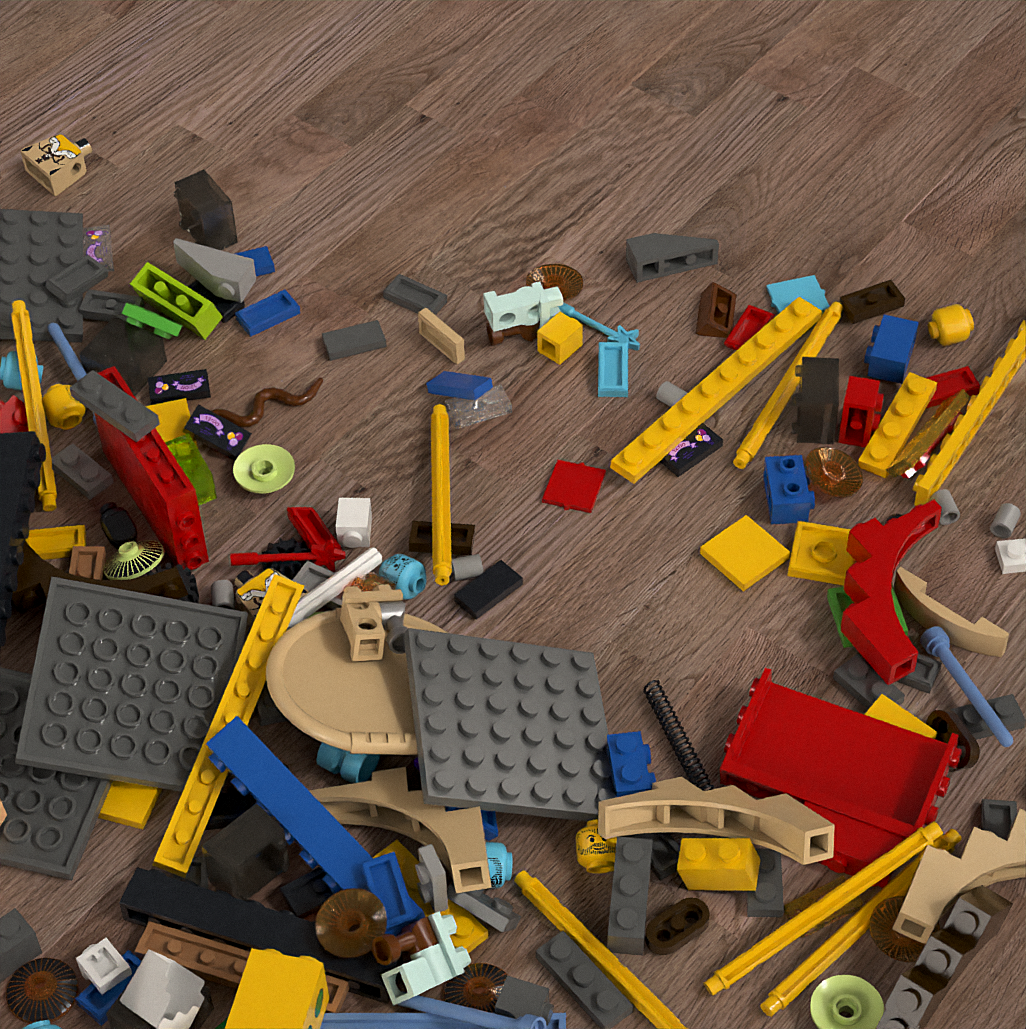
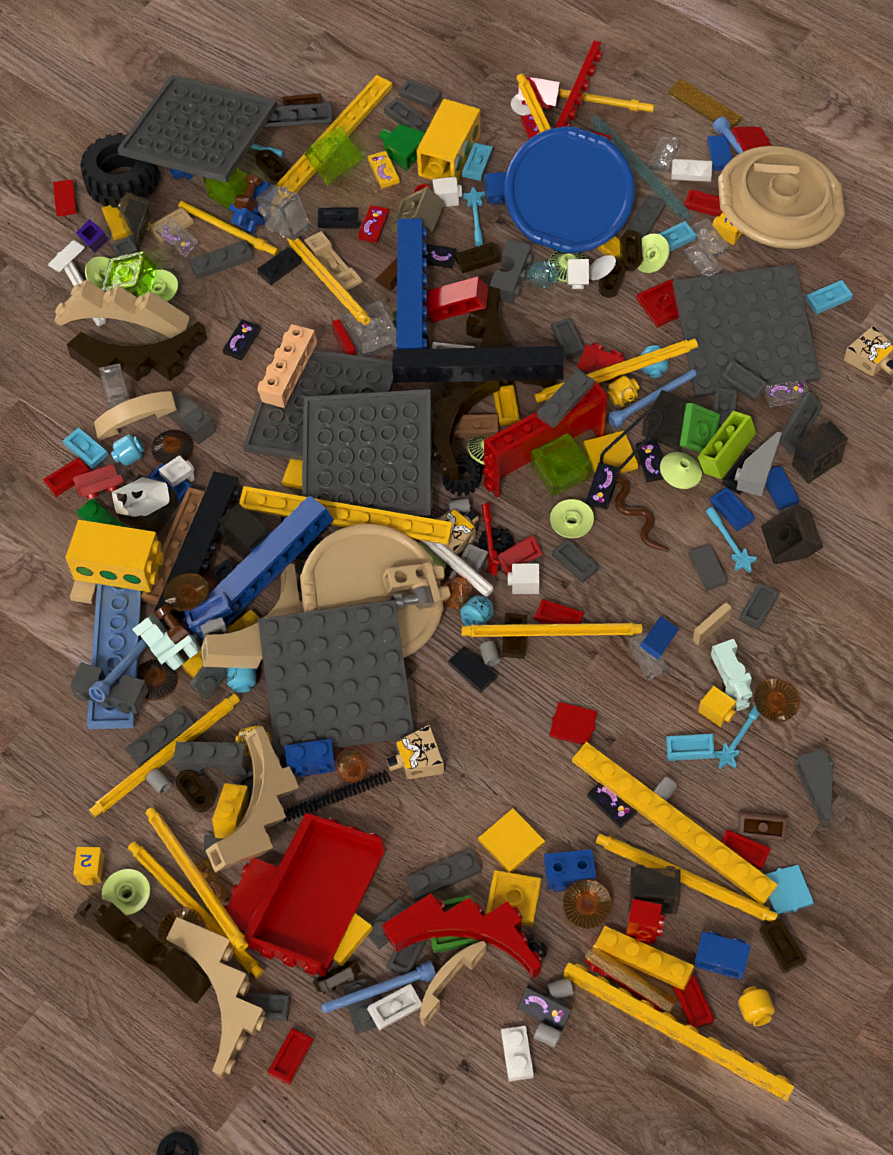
camera: 90 degrees right, 10 degrees up
(148, 236) = (800, 421): none -> dark grey plate
(163, 382) = (628, 429): none -> black piece
(200, 357) = (680, 470): none -> yellowish green dish
(320, 255) = (792, 535): none -> clear smoke slope
(326, 474) = (575, 560): none -> dark grey tile
(341, 308) = (742, 559): none -> medium azure piece
(410, 495) = (554, 613): none -> red tile
(622, 646) = (417, 755): none -> torso
(643, 715) = (350, 765): none -> clear orange head
(661, 976) = (158, 781): none -> light grey hinge
(796, 626) = (443, 875): none -> dark grey plate
(972, 520) = (545, 1008): none -> black tile
(991, 672) = (394, 1007): none -> white plate

